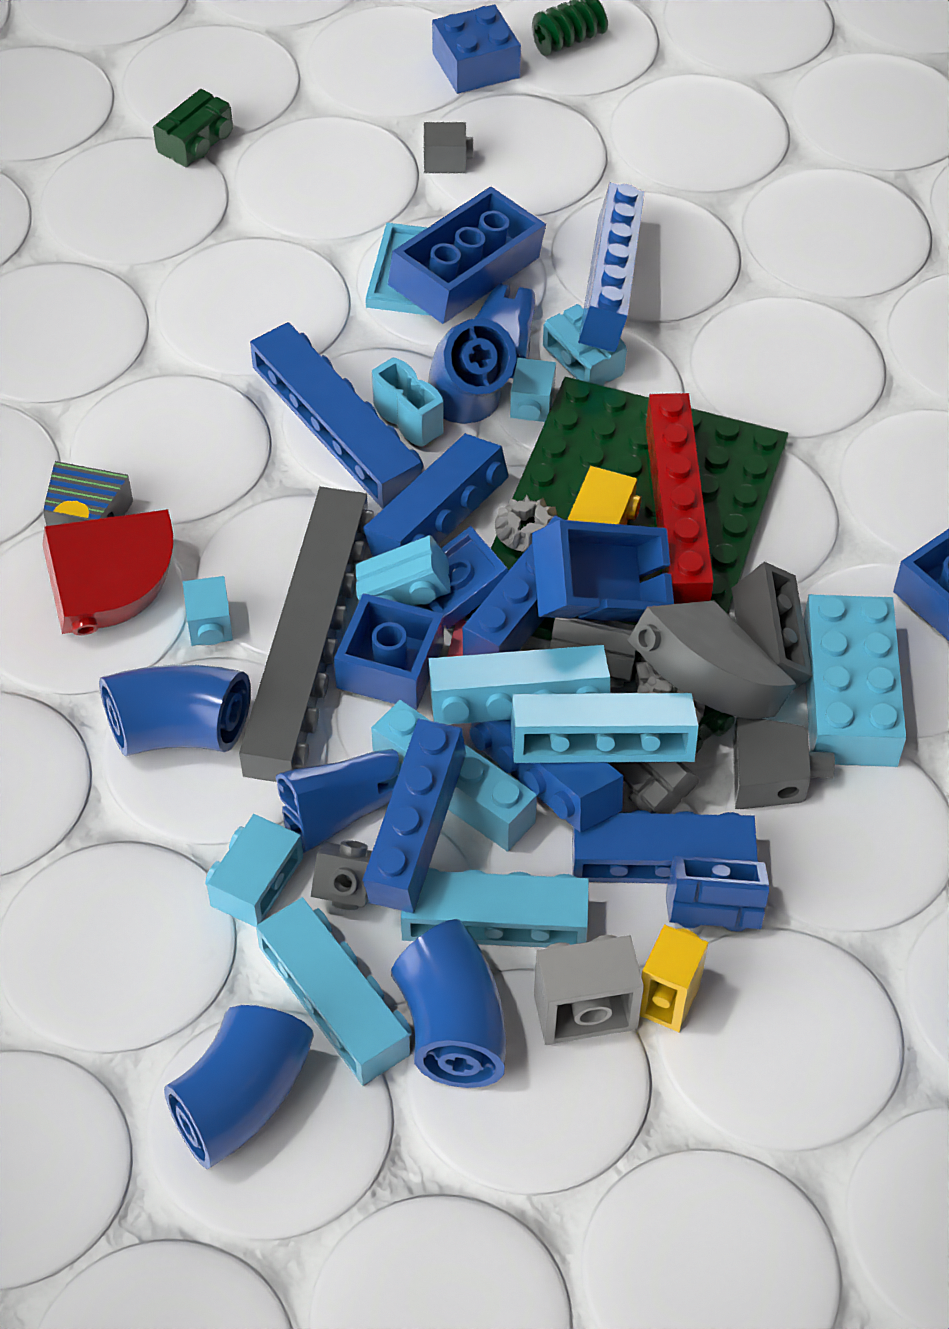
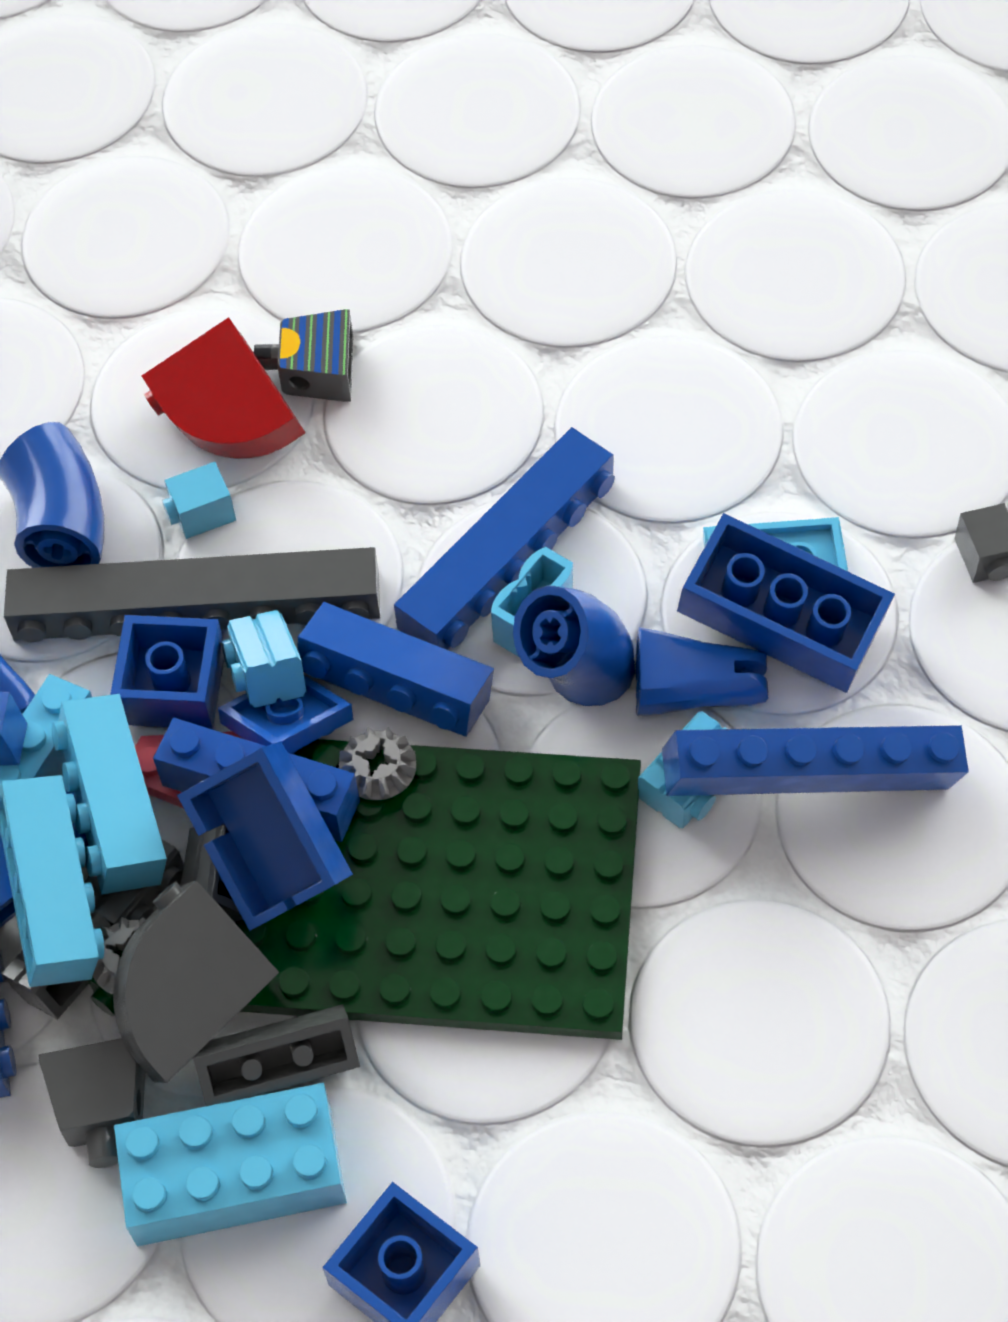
camera: 80 degrees right, 5 degrees up
(193, 128) = (916, 287): dark green brick -> none
(532, 389) = (601, 727): medium azure brick -> none
(606, 498) = (397, 832): yellow brick -> none
(679, 495) = (436, 910): red brick -> none

